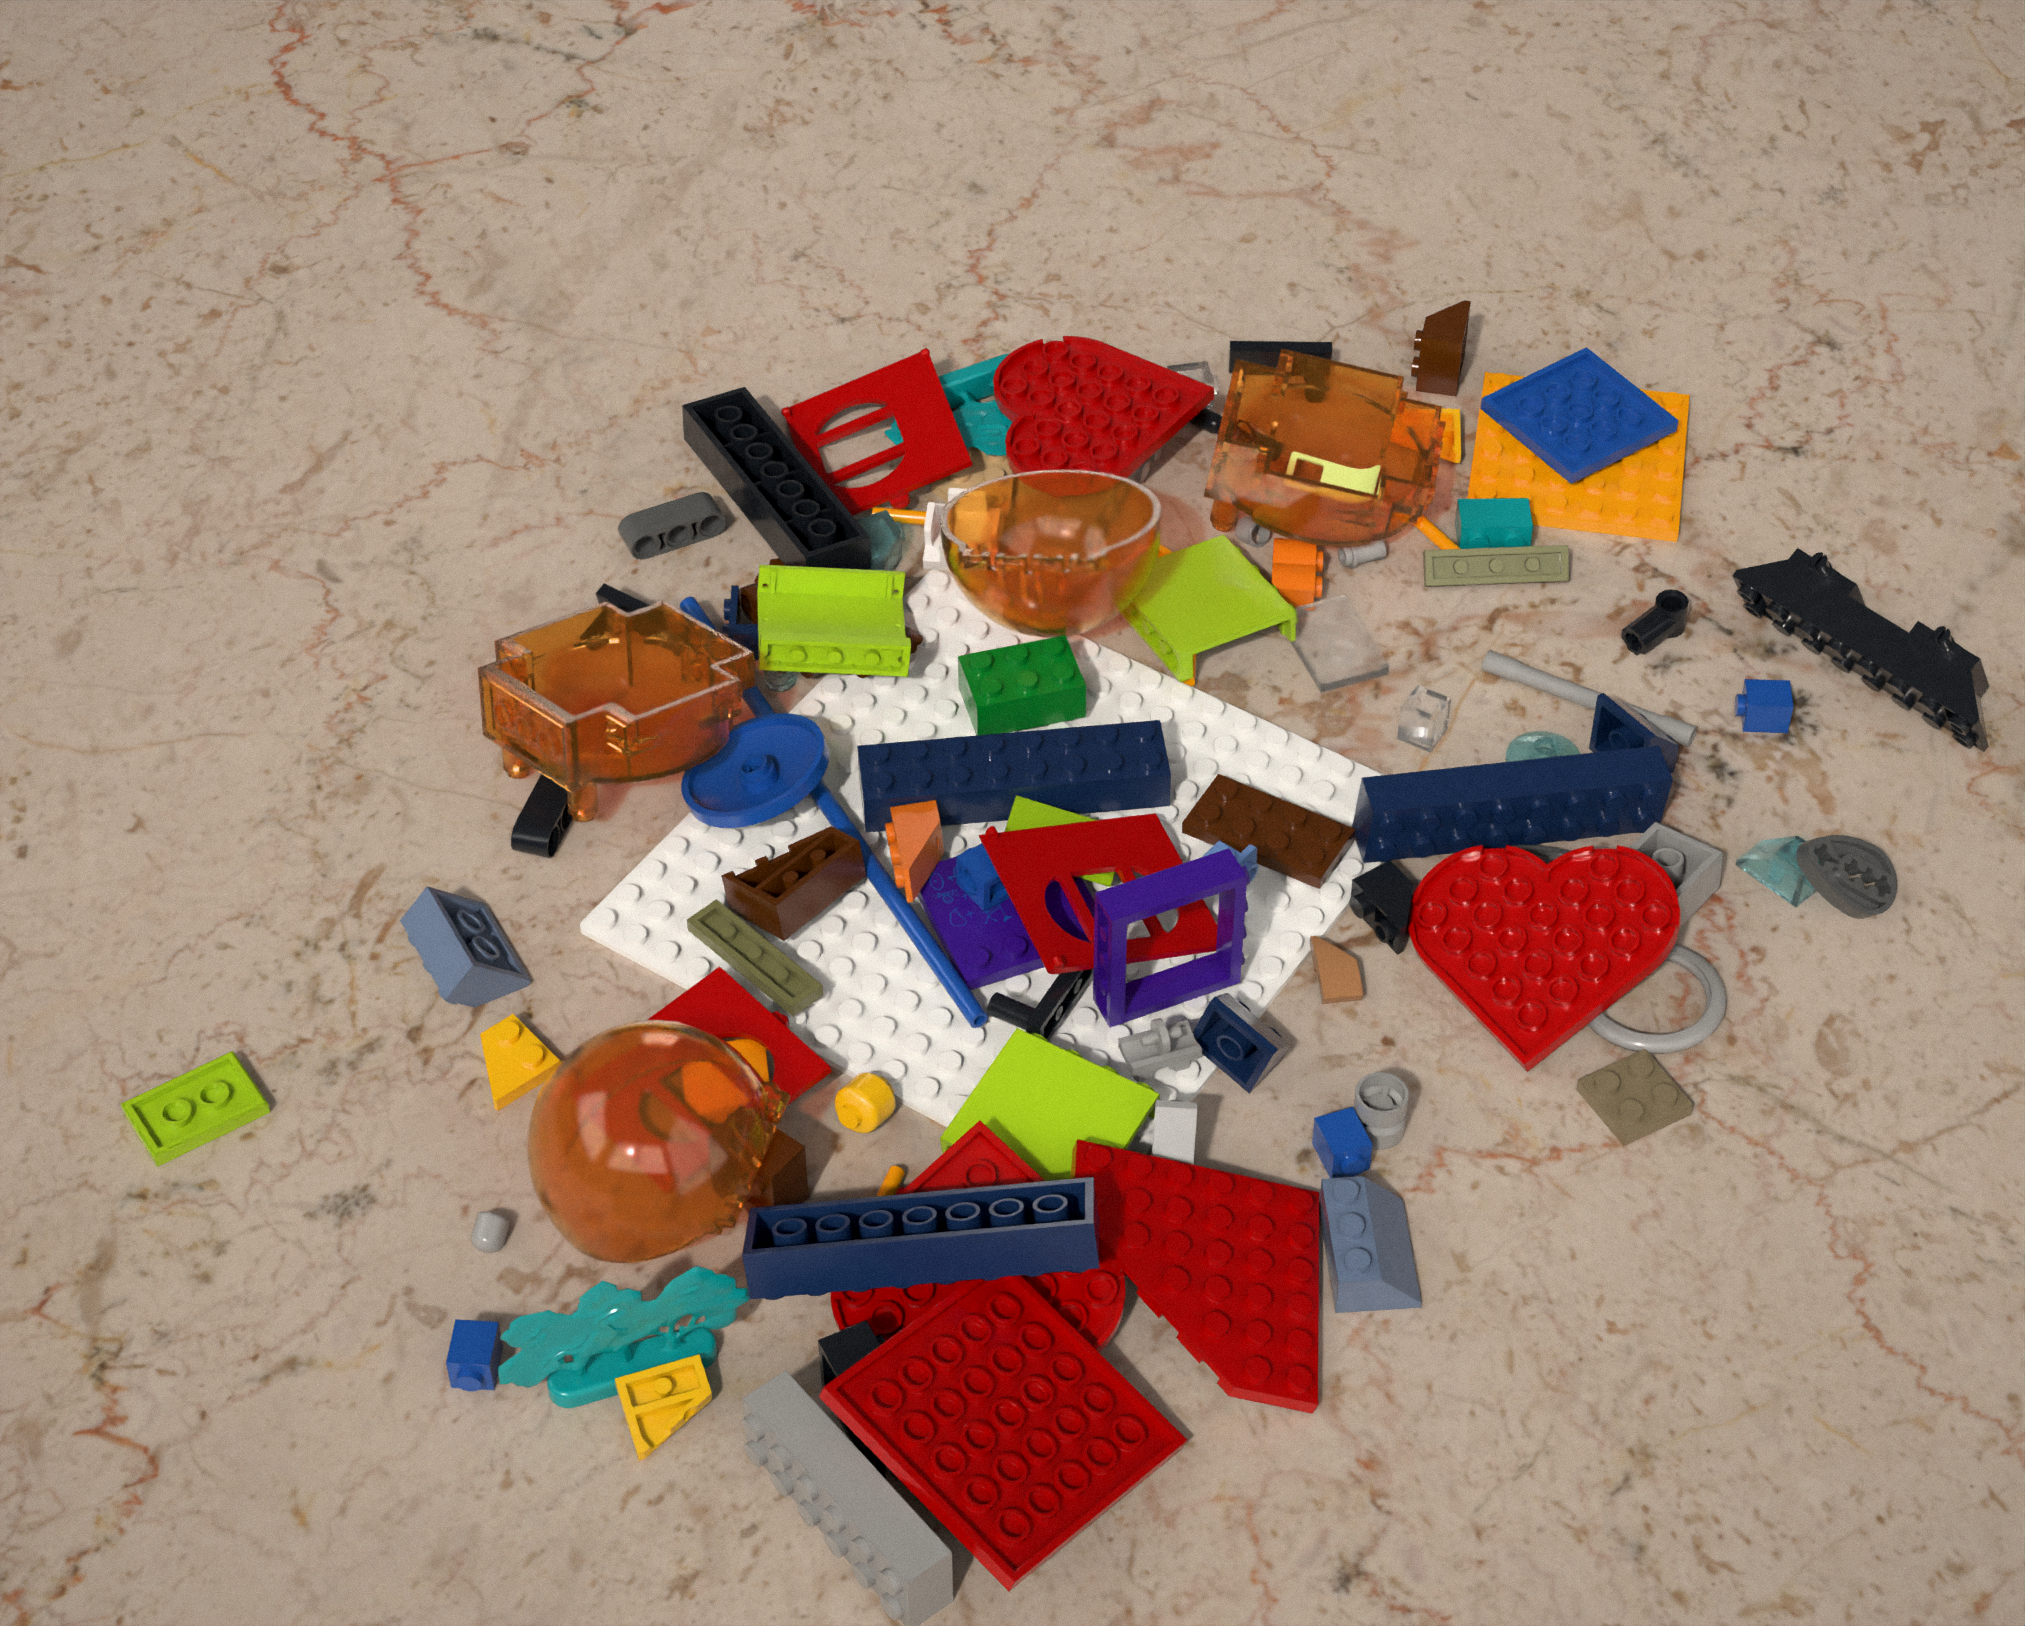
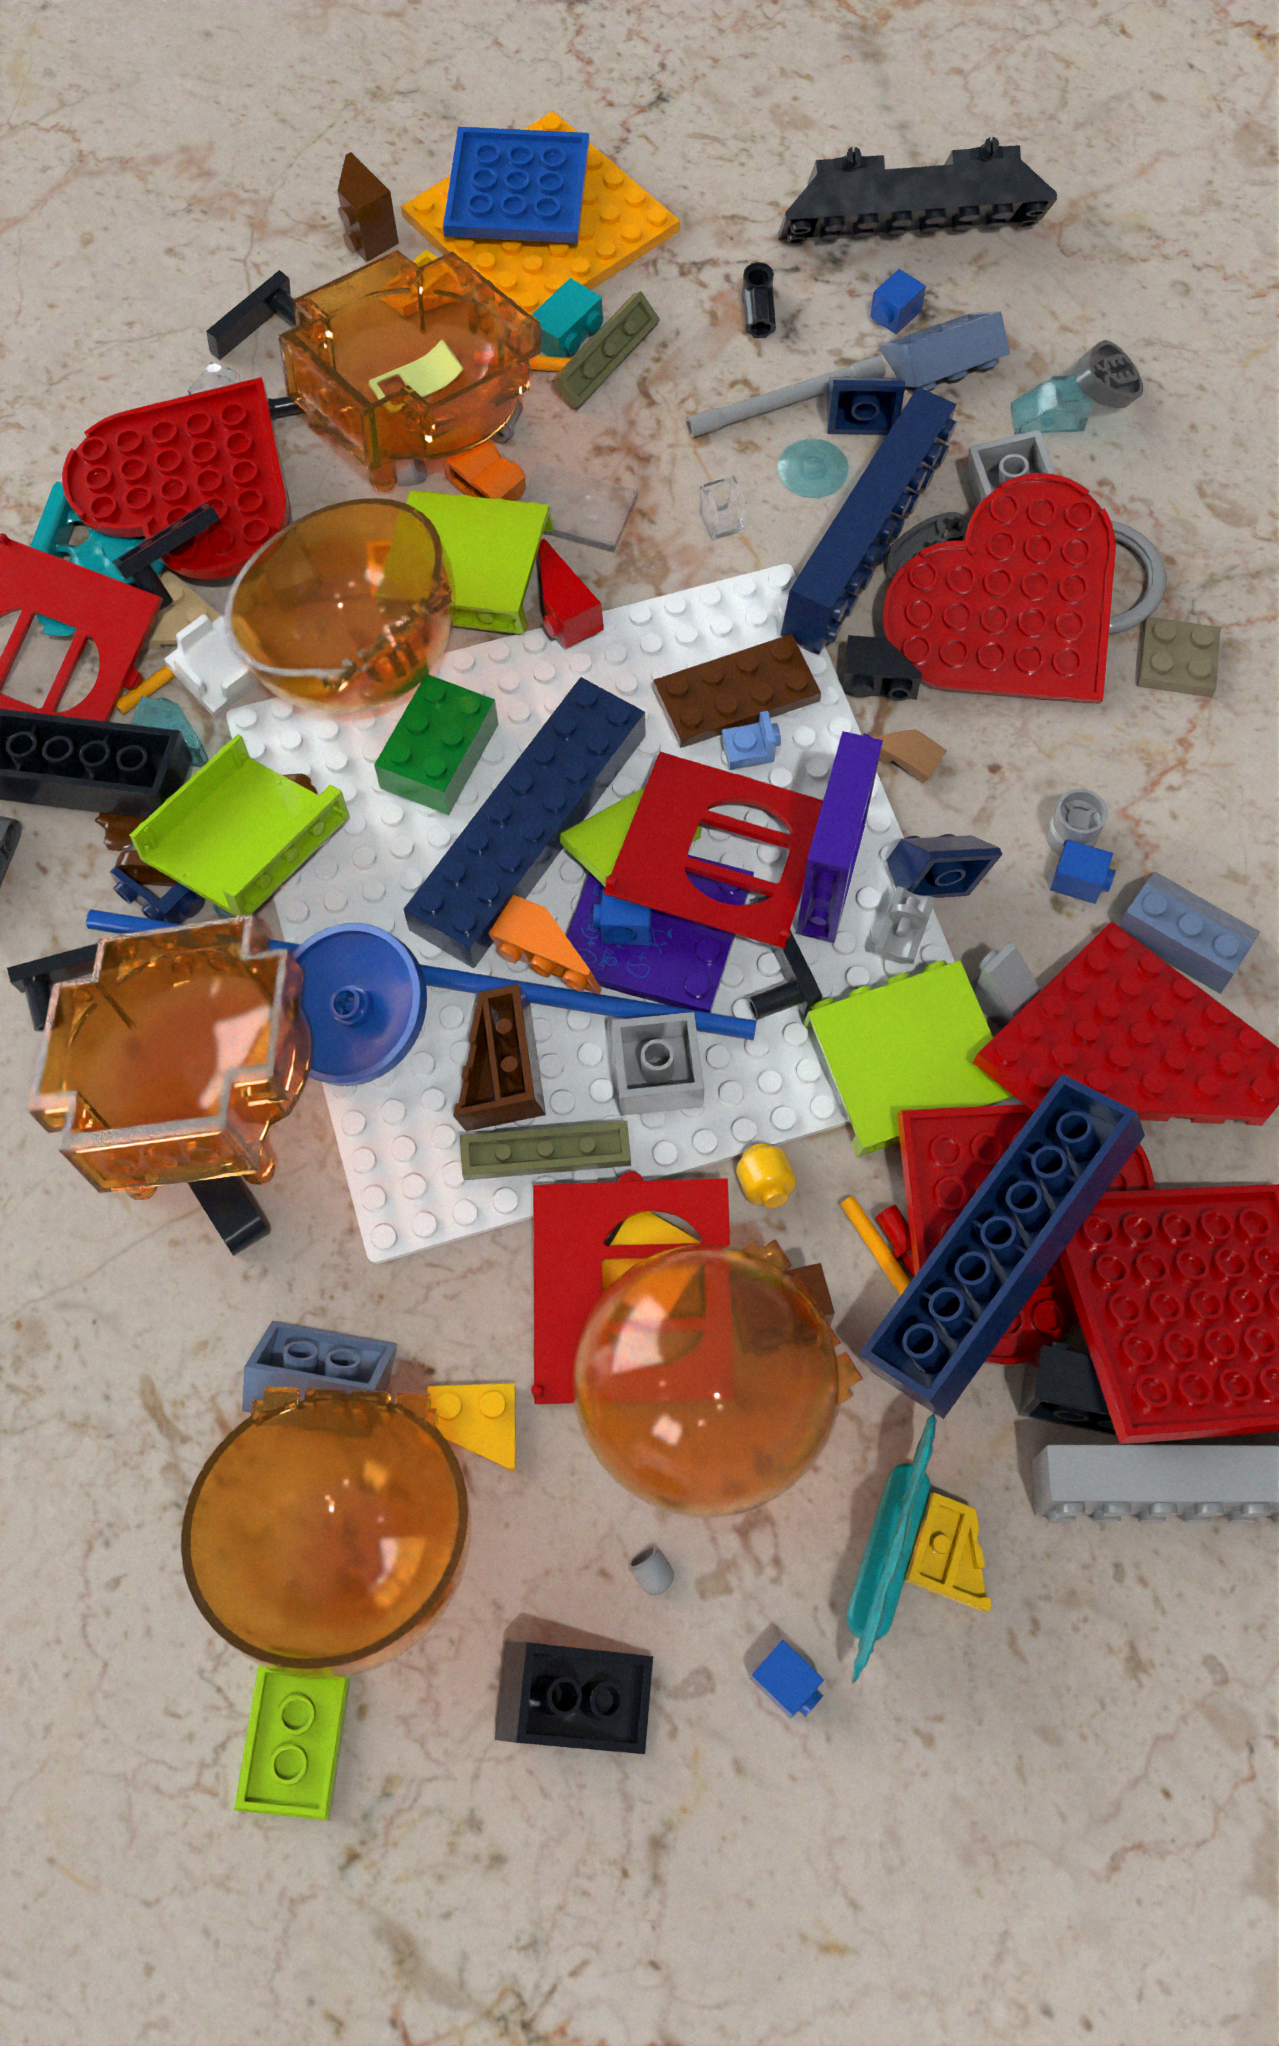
camera: 50 degrees left, 20 degrees up
(342, 988) = (328, 1530): none -> clear orange windscreen
(354, 1237) = (574, 1698): none -> black slope
(883, 970) = (657, 1063): none -> light grey brick
(982, 428) = (137, 560): none -> black piece
(1229, 679) = (569, 605): none -> red slope
(1754, 765) = (948, 349): none -> sand blue slope

